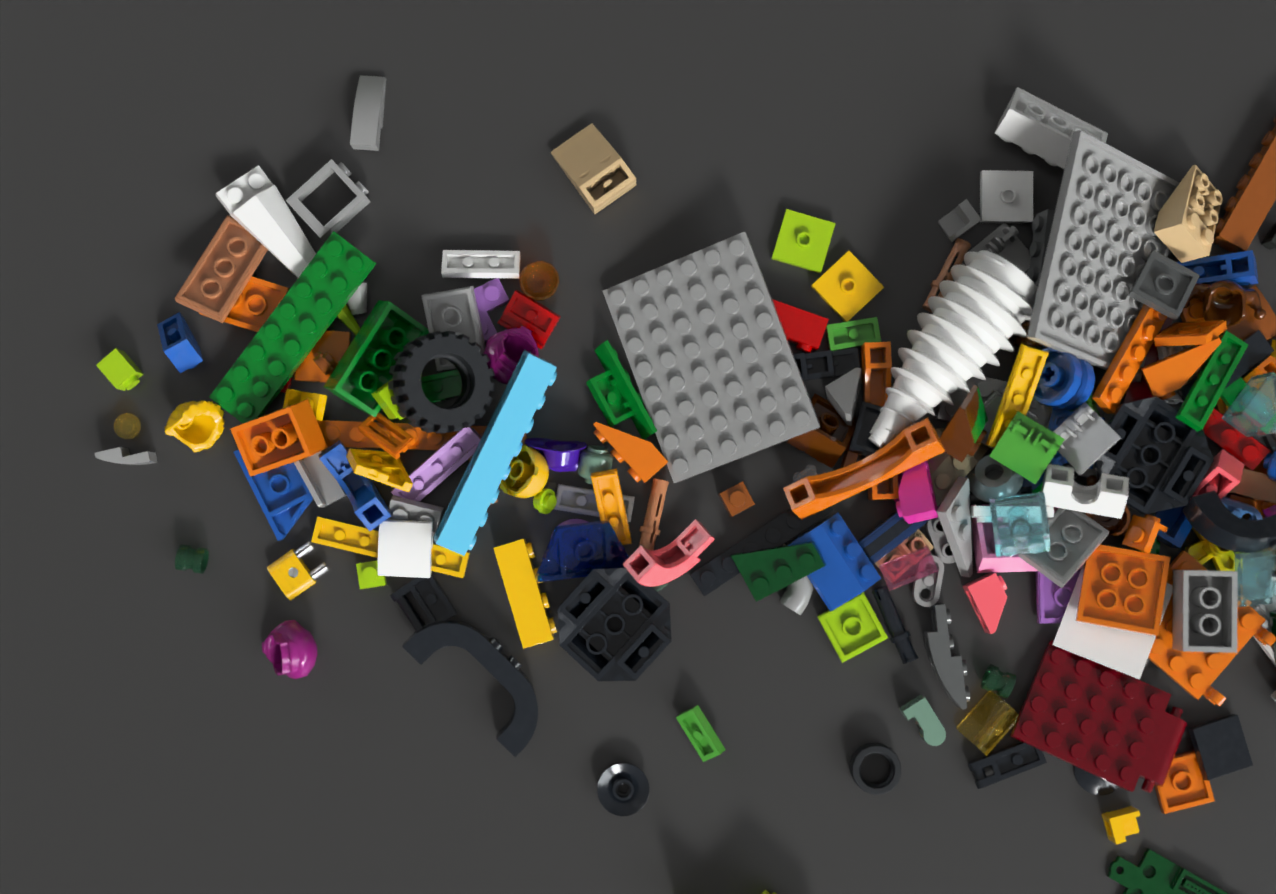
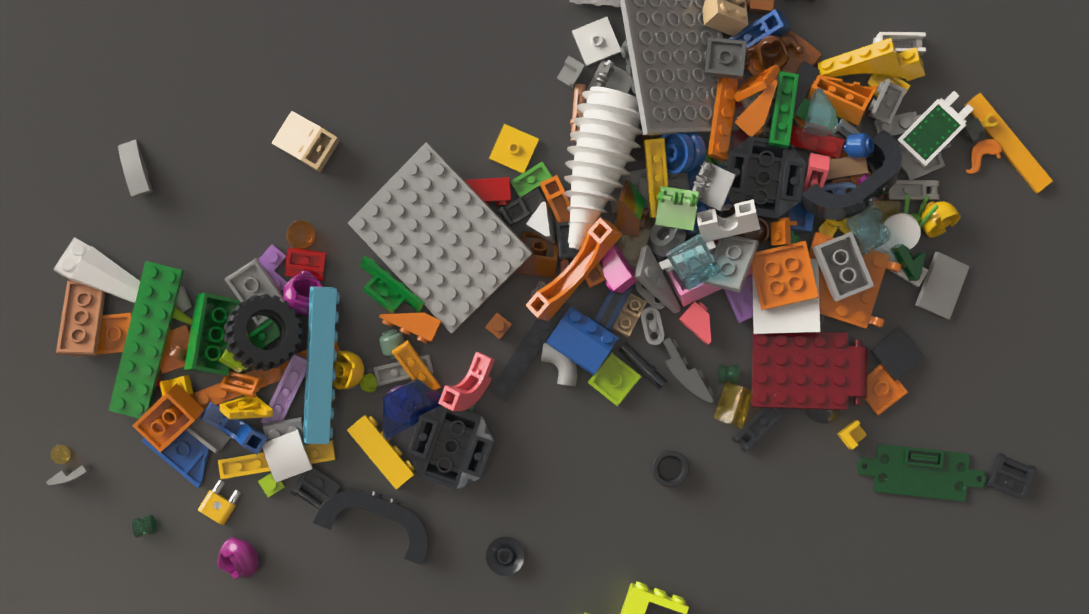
camera: 20 degrees left, 0 degrees up
(120, 370) = (39, 418): lime brick -> none
(179, 343) = (72, 382): blue slope -> none
(196, 424) = (107, 432): yellow hair -> none
(344, 215) = (148, 247): light grey window -> none
(480, 264) = (256, 240): white plate -> none
(560, 455) = (365, 347): dark purple piece -> none
(653, 514) = (446, 360): nougat pin -> none
(700, 733) = (541, 495): bright green plate -> none
(777, 567) = (544, 361): dark green wing -> none
(803, 241) = (470, 130): lime plate -> none
(908, 568) = (634, 323): clear pink tile -> none
(930, 727) = (694, 423): sand green leg -> none

